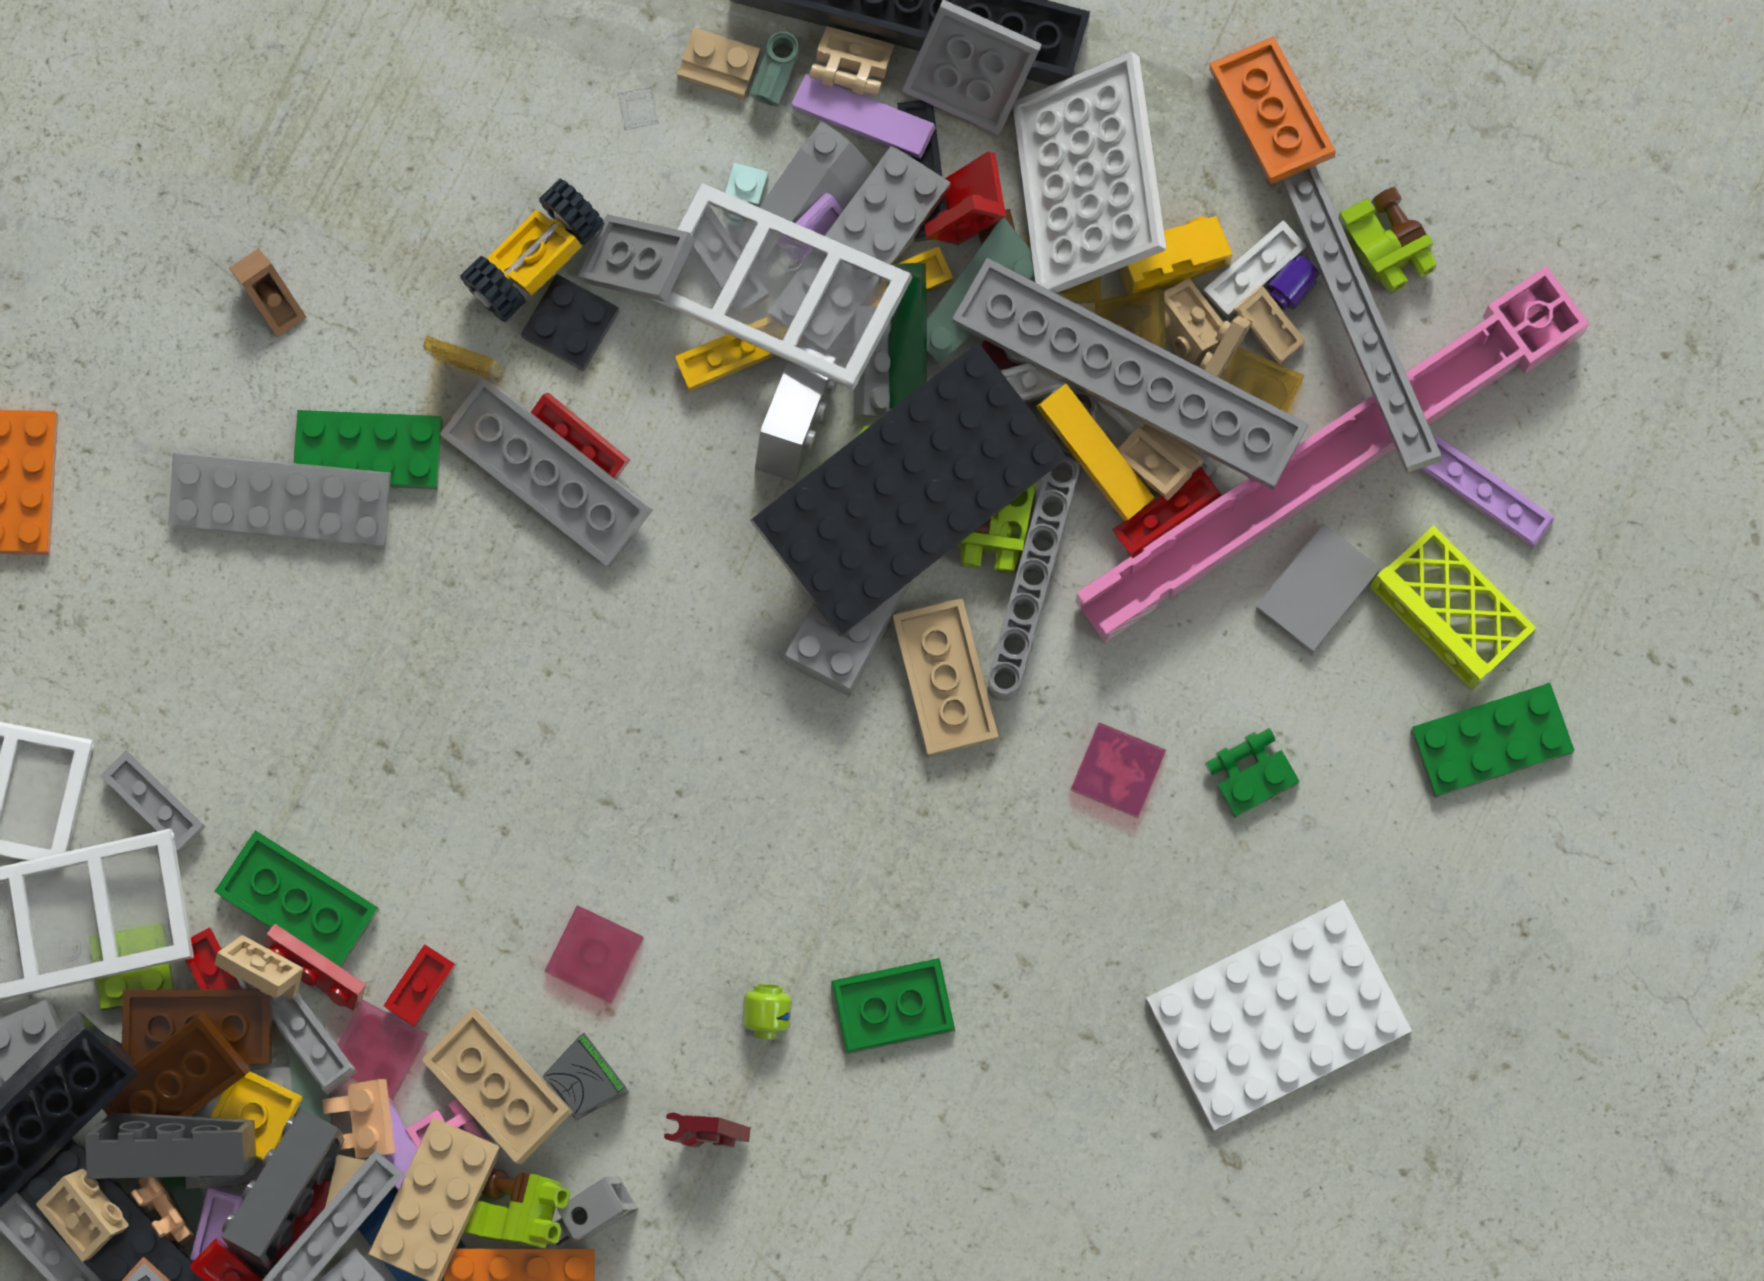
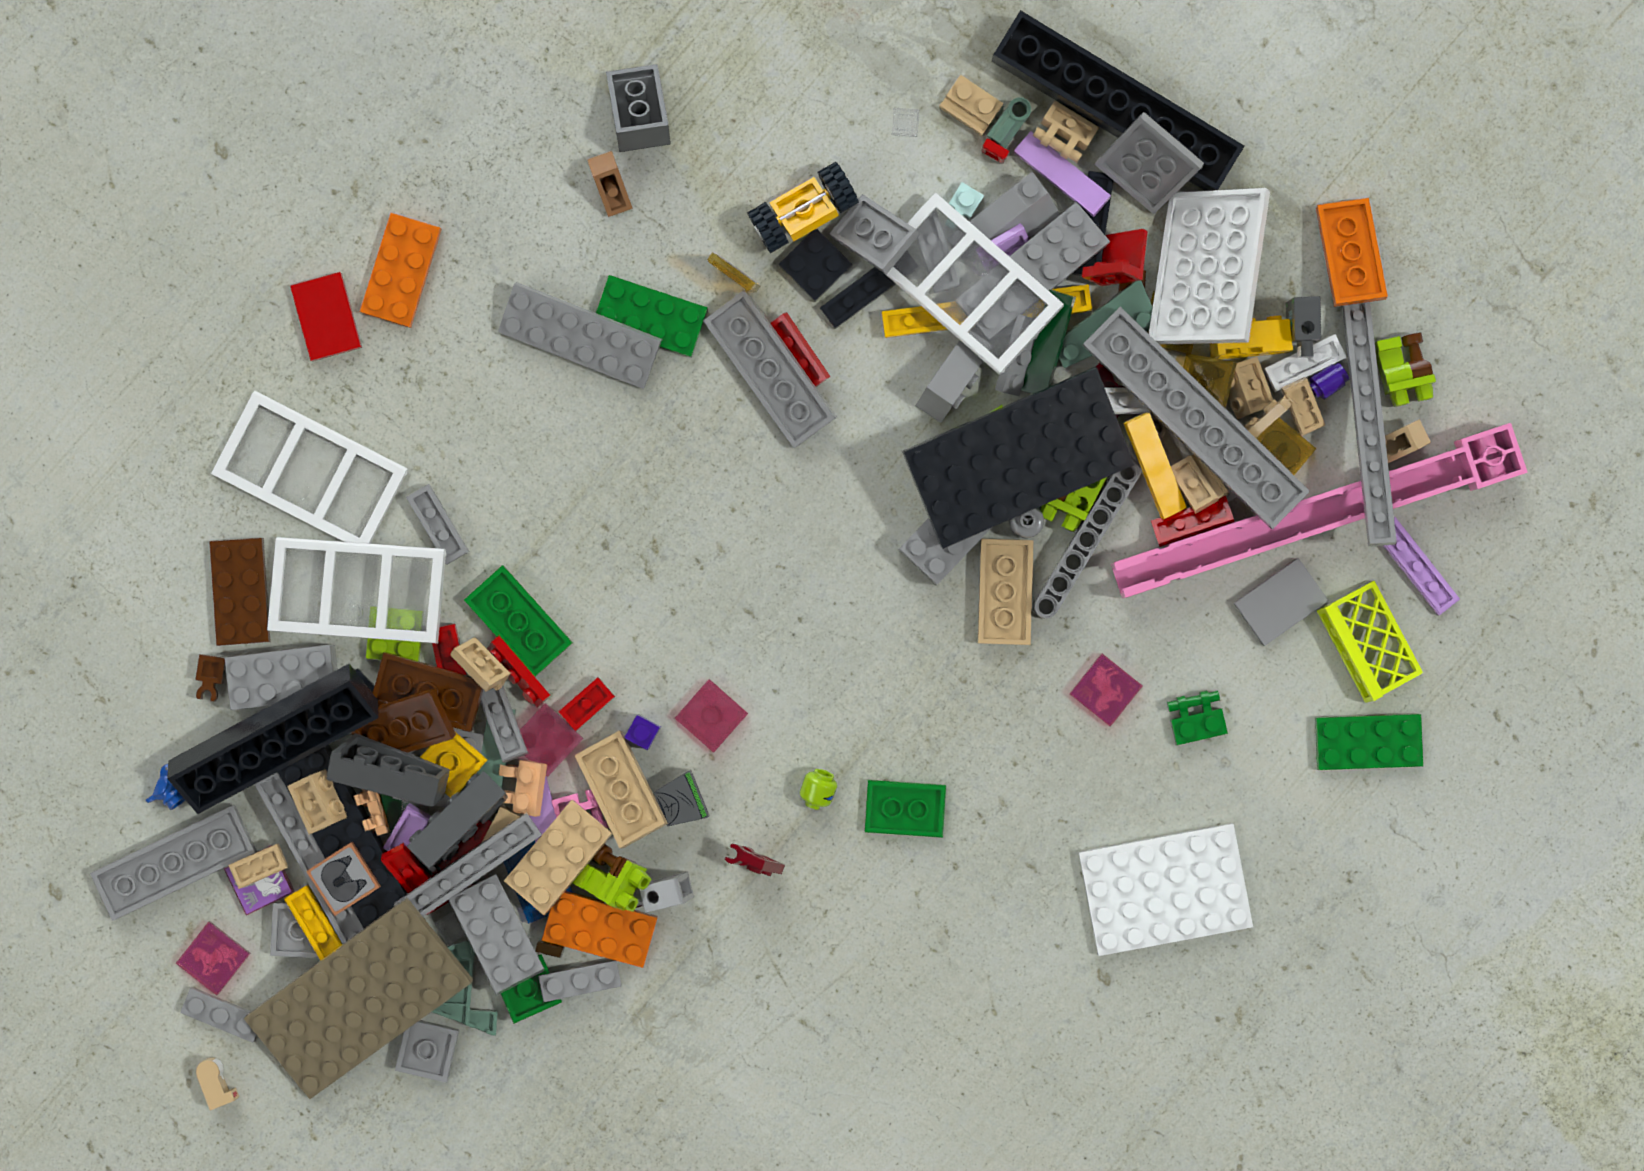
camera: 10 degrees right, 10 degrees up
(280, 185) = (638, 108): none -> dark grey slope
(506, 1000) = (642, 732): none -> dark purple brick
(637, 348) = (856, 297): none -> black tile
(766, 111) = (994, 151): none -> red tile
(947, 586) = (1027, 531): none -> light grey head
(1235, 204) = (1306, 313): none -> dark grey torso
(1417, 330) = (1406, 440): none -> tan arch

